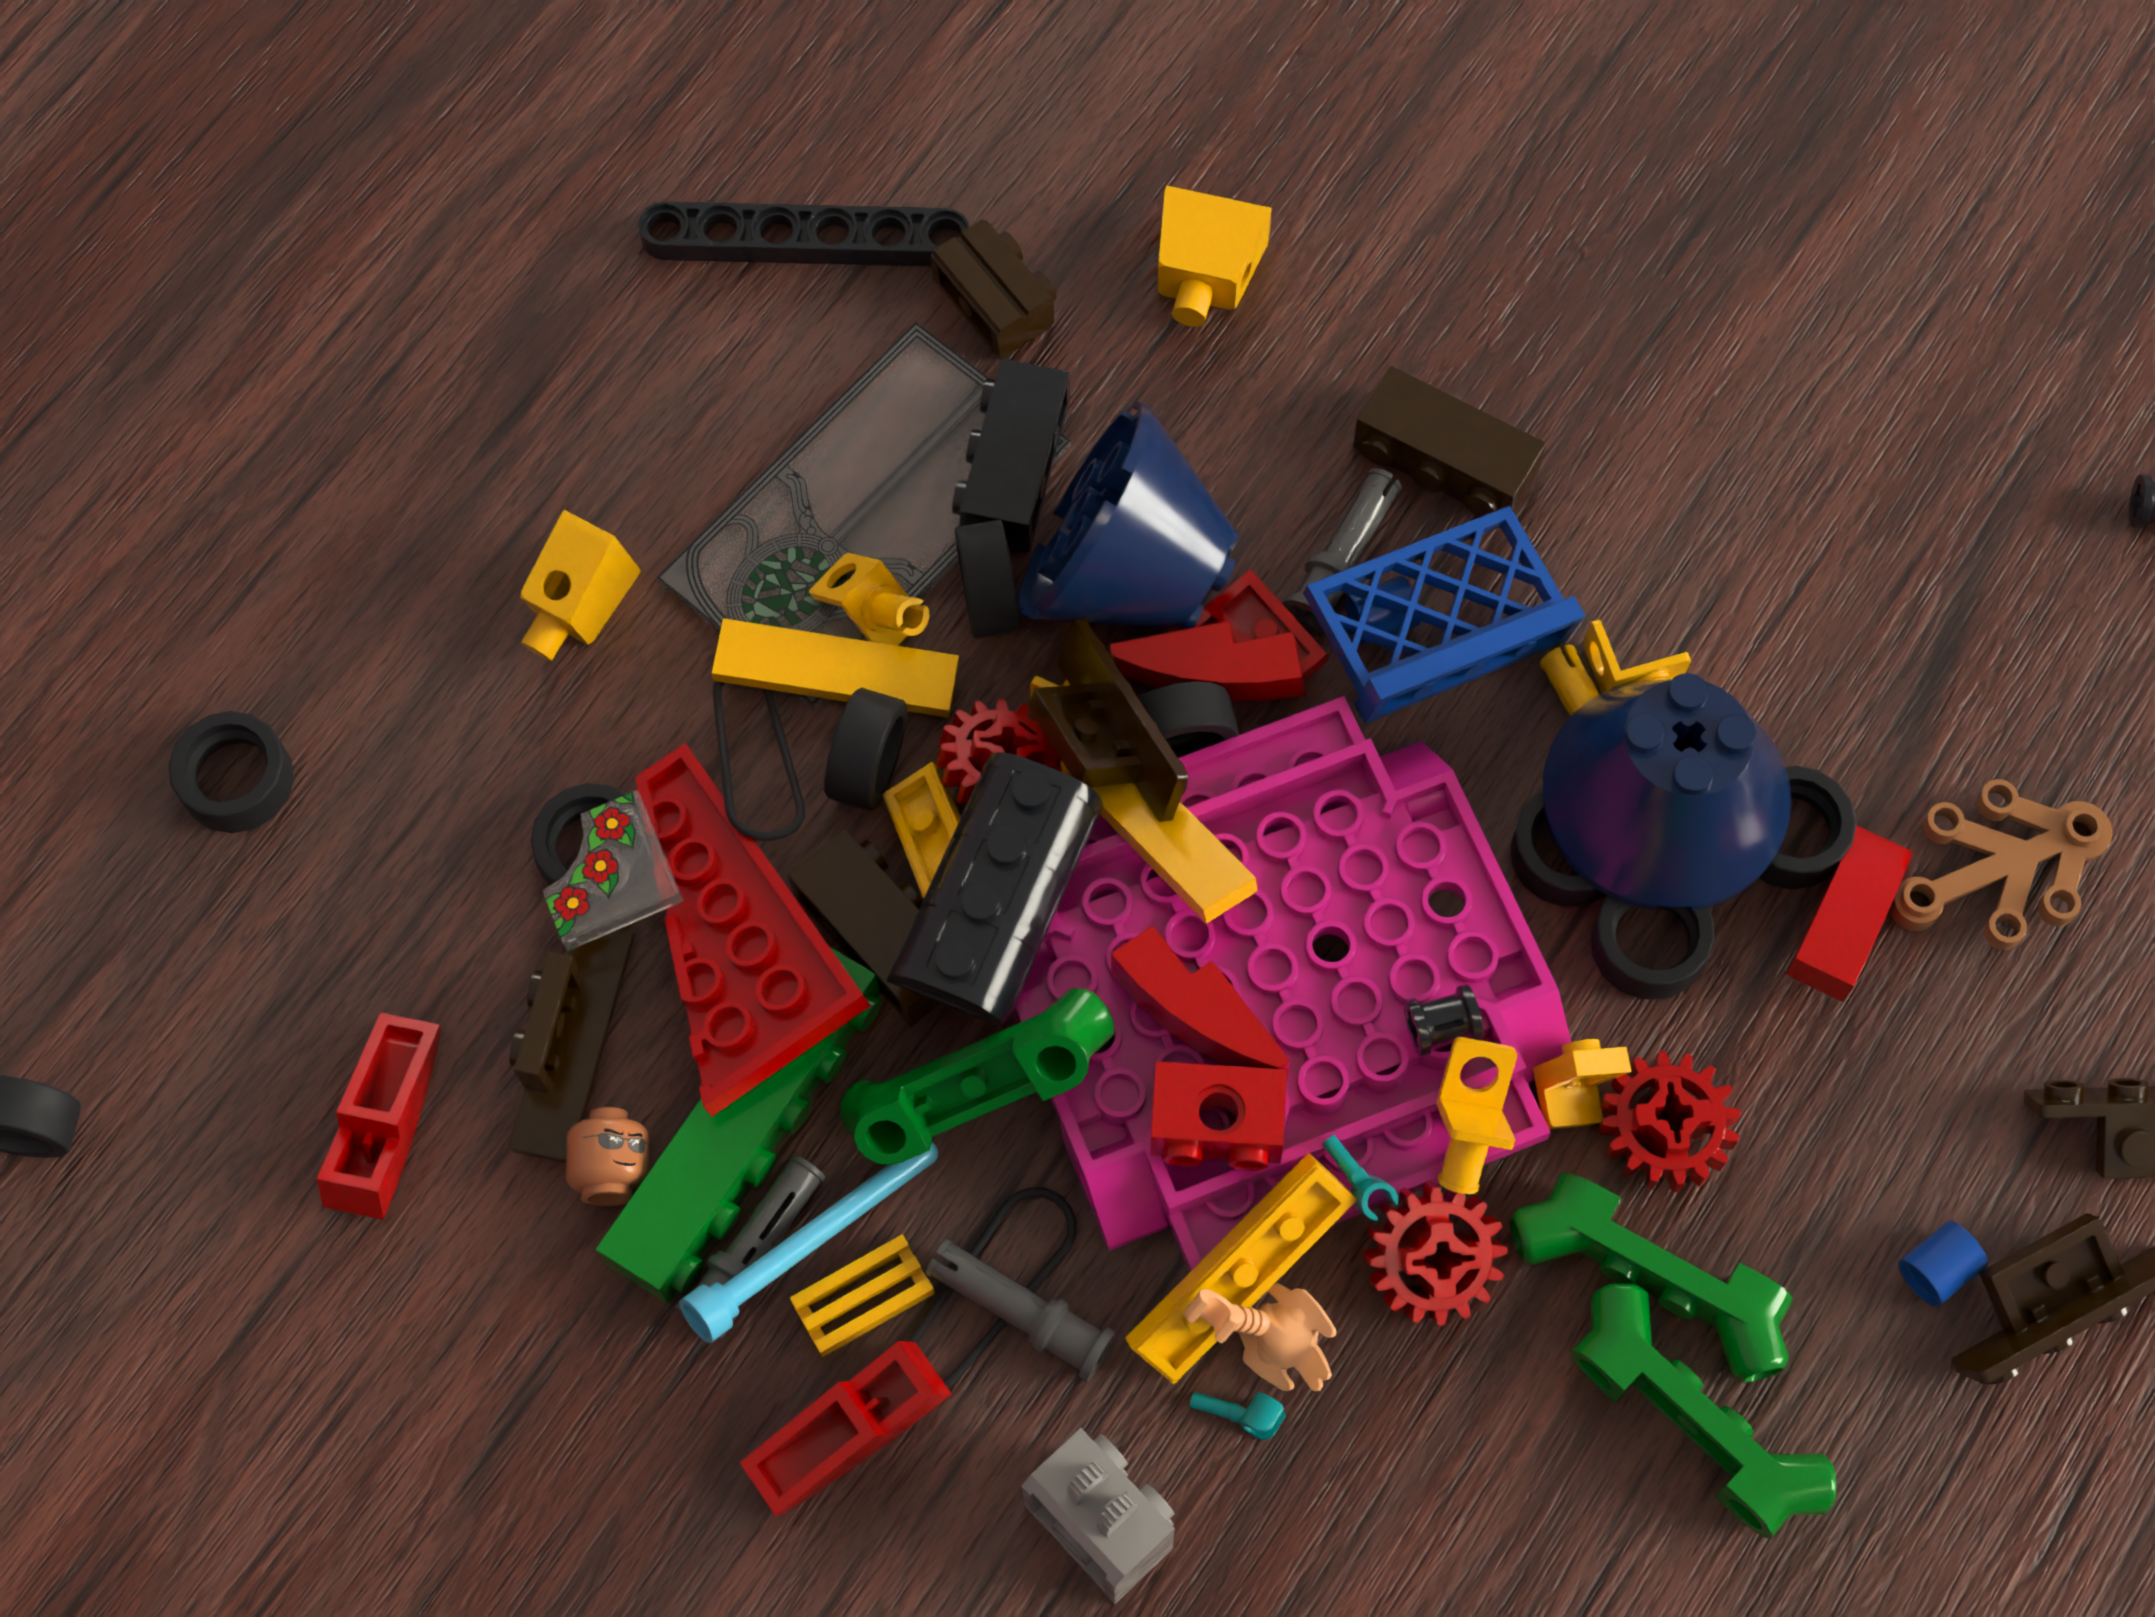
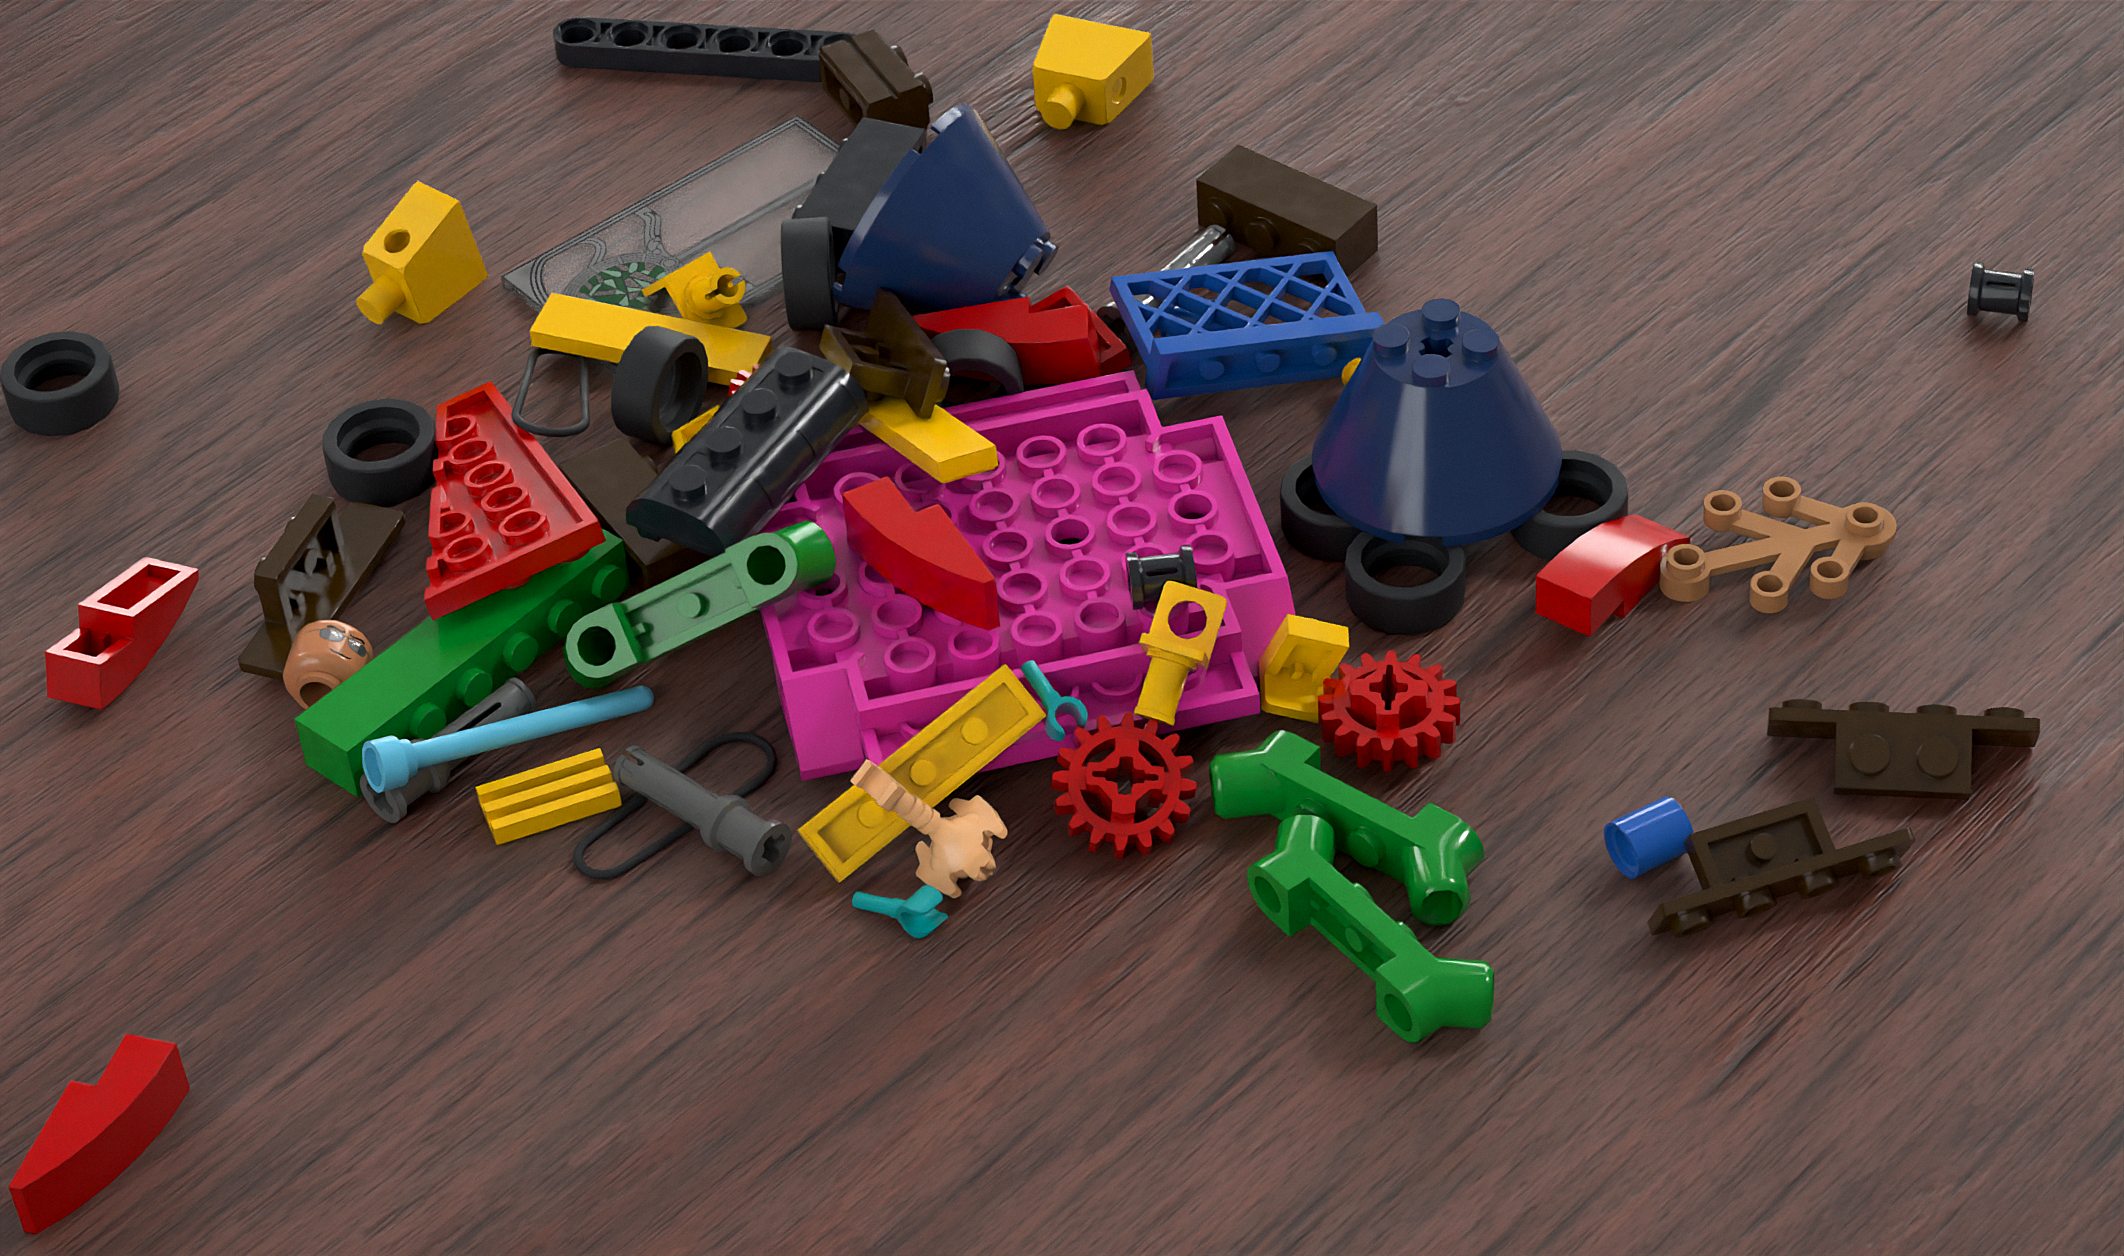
camera: 10 degrees right, 25 degrees down
(616, 877) = (393, 453): clear tile -> none
(845, 1427) = (504, 884): red slope -> none
(1100, 1513) = (731, 946): light grey hinge -> none
(1249, 1093) = (920, 628): red brick -> none

